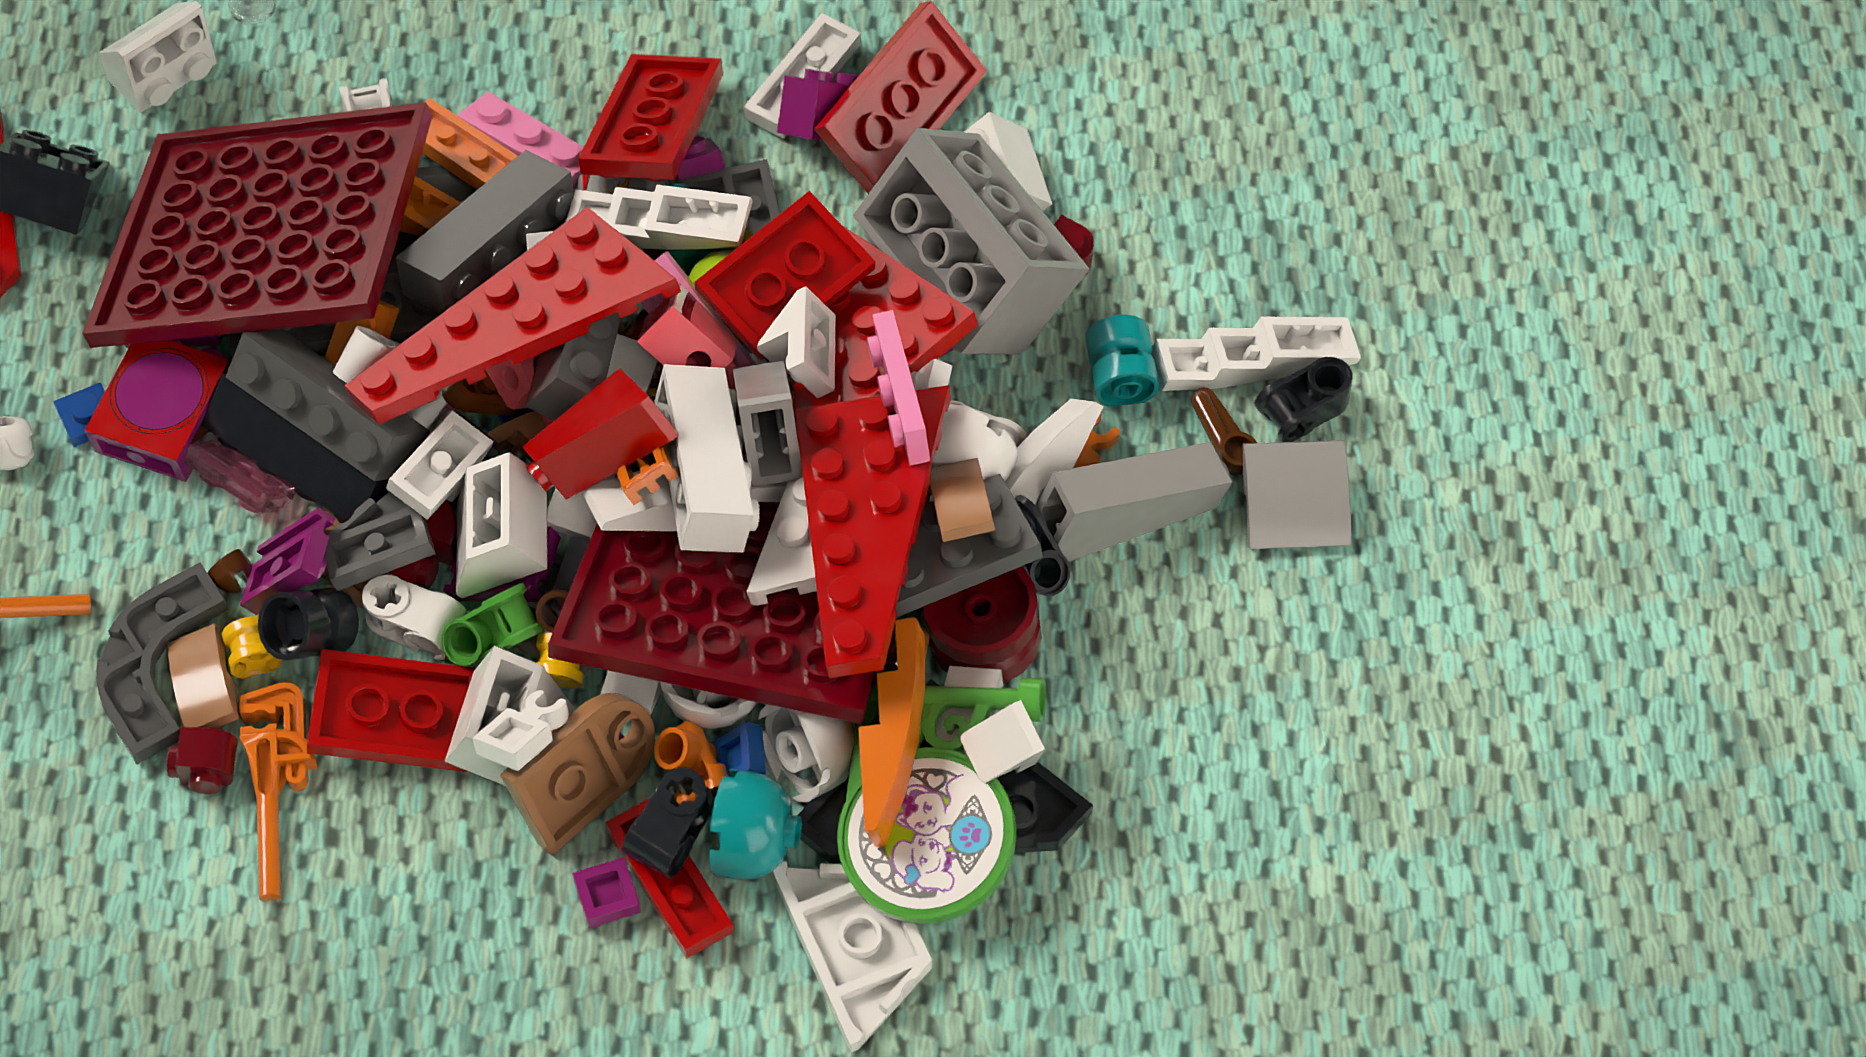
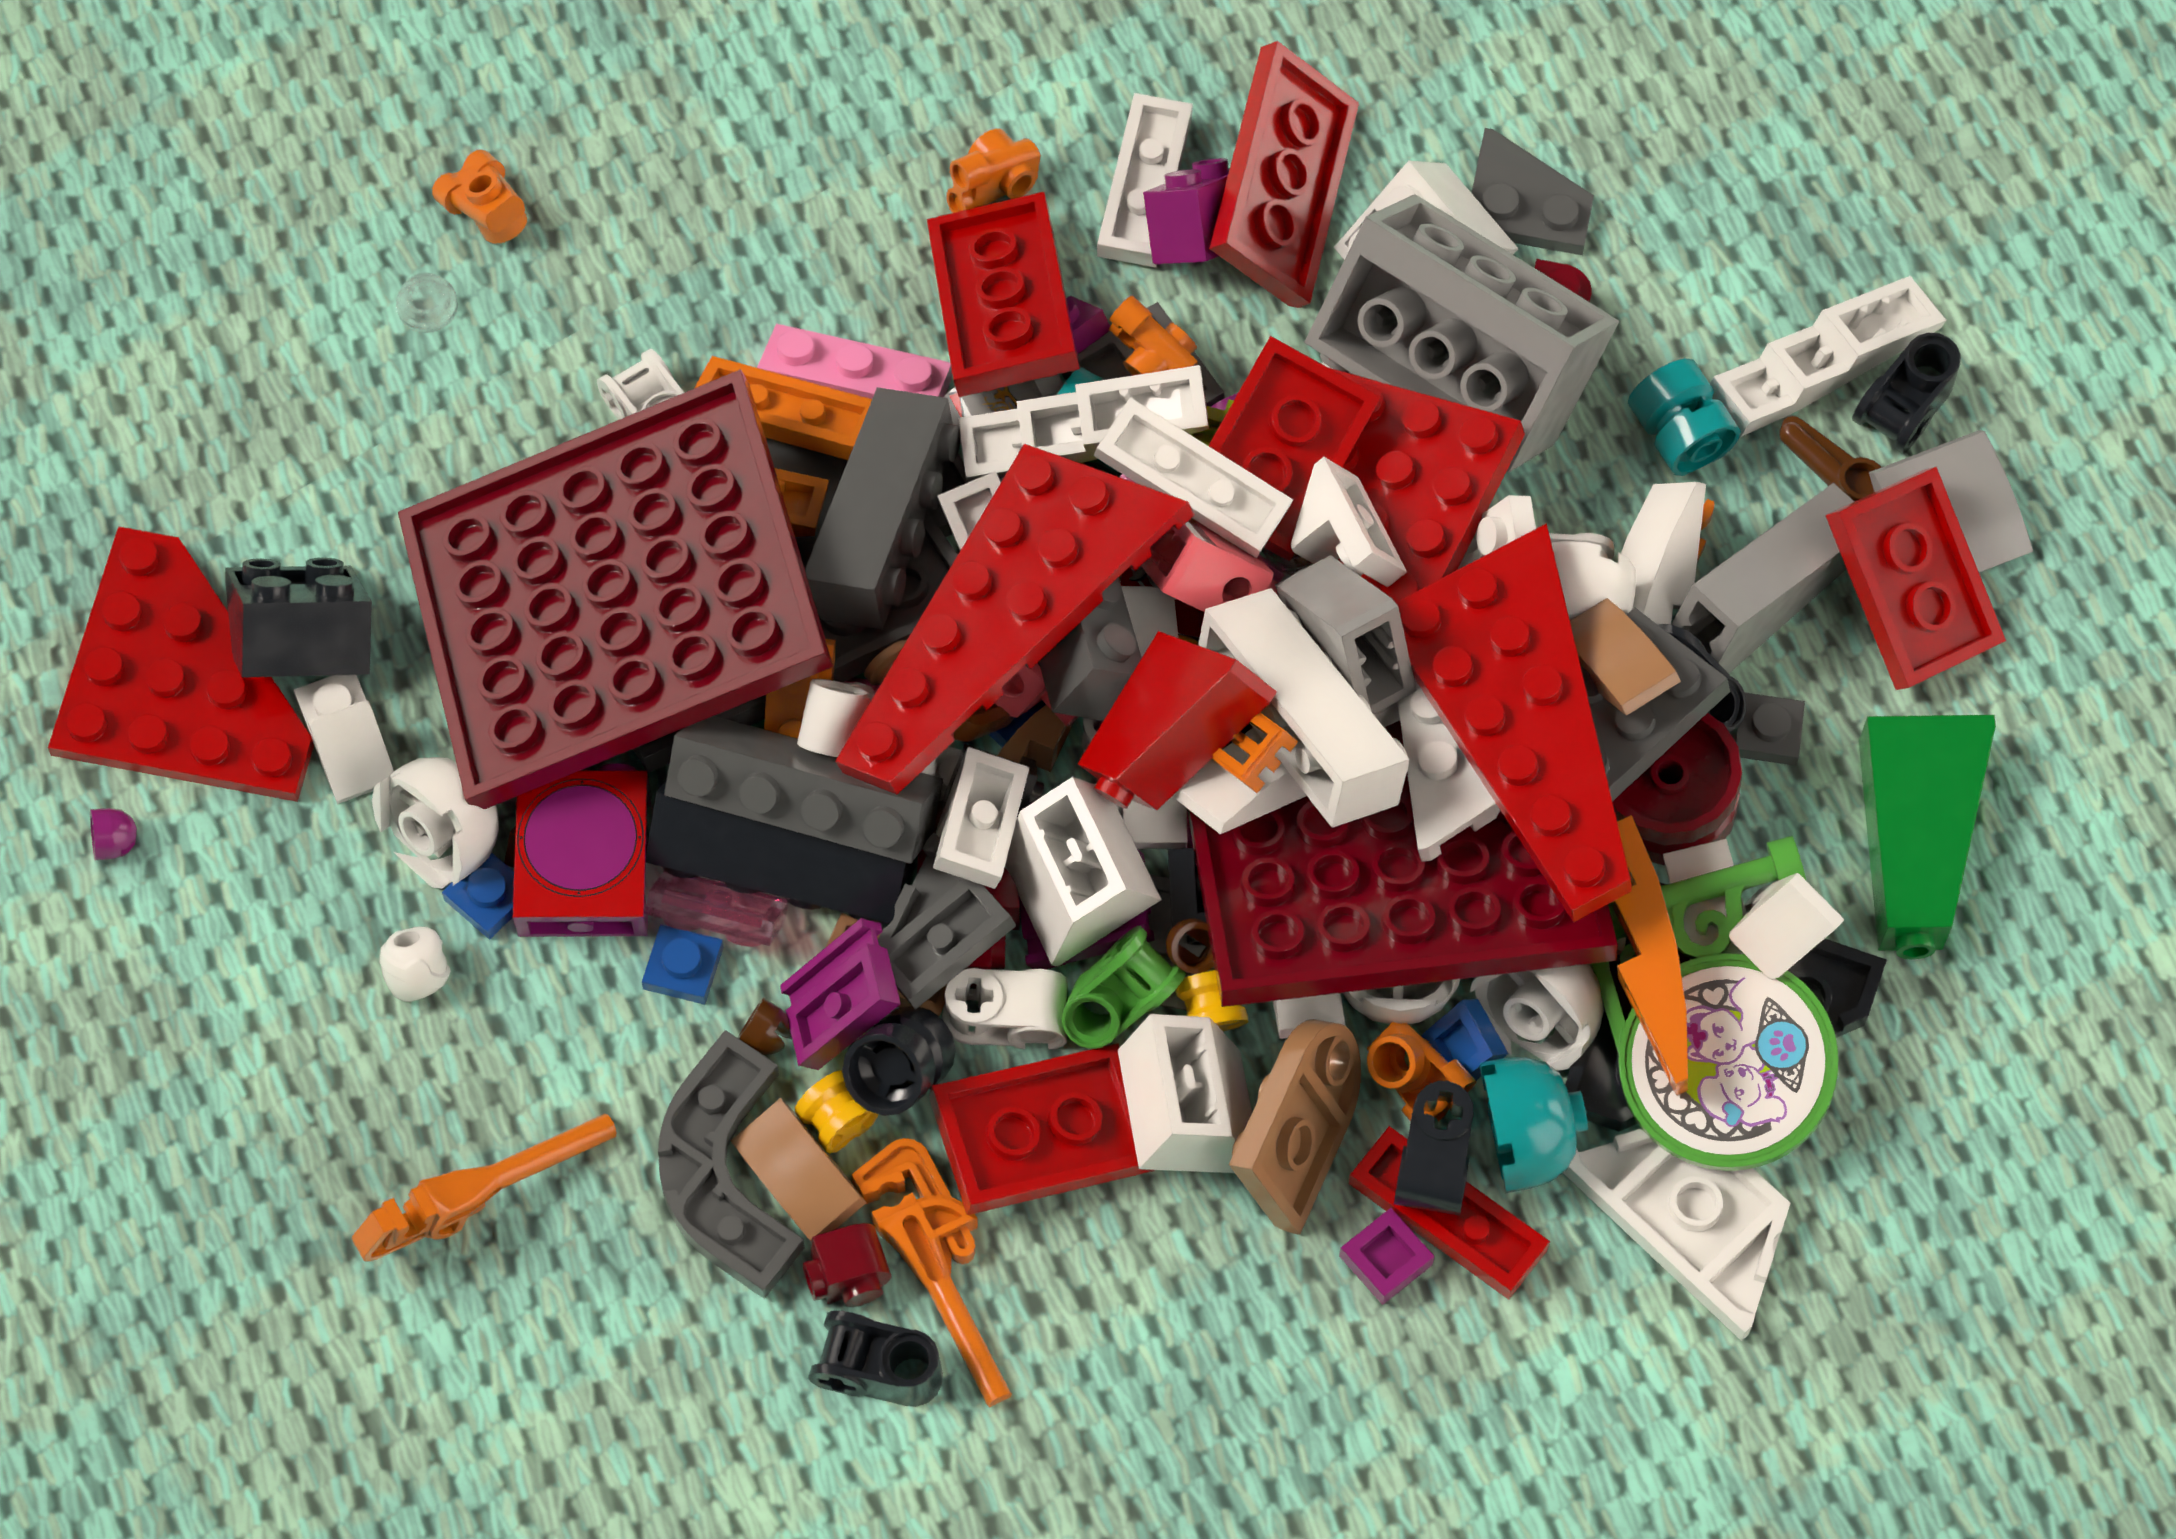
camera: 20 degrees left, 5 degrees up
(42, 274) = (344, 735): none -> white slope
(59, 330) = (429, 814): none -> white cylinder
(160, 56) = (356, 409): white slope -> none
(185, 830) = (863, 1357): none -> black piece
(198, 509) = (682, 964): none -> blue plate
(519, 736) = (1236, 1112): white plate -> none
(693, 34) = (991, 170): none -> orange plate
(702, 270) = (1180, 465): none -> white plate
(742, 181) = (1154, 346): none -> orange plate
(898, 389) = (1501, 548): bright pink plate -> none
(1083, 175) = (1530, 198): none -> dark grey wing
(1085, 608) = (1771, 729): none -> dark grey plate
(1171, 708) = (1920, 818): none -> green slope
(1241, 530) = (1915, 578): none -> red plate

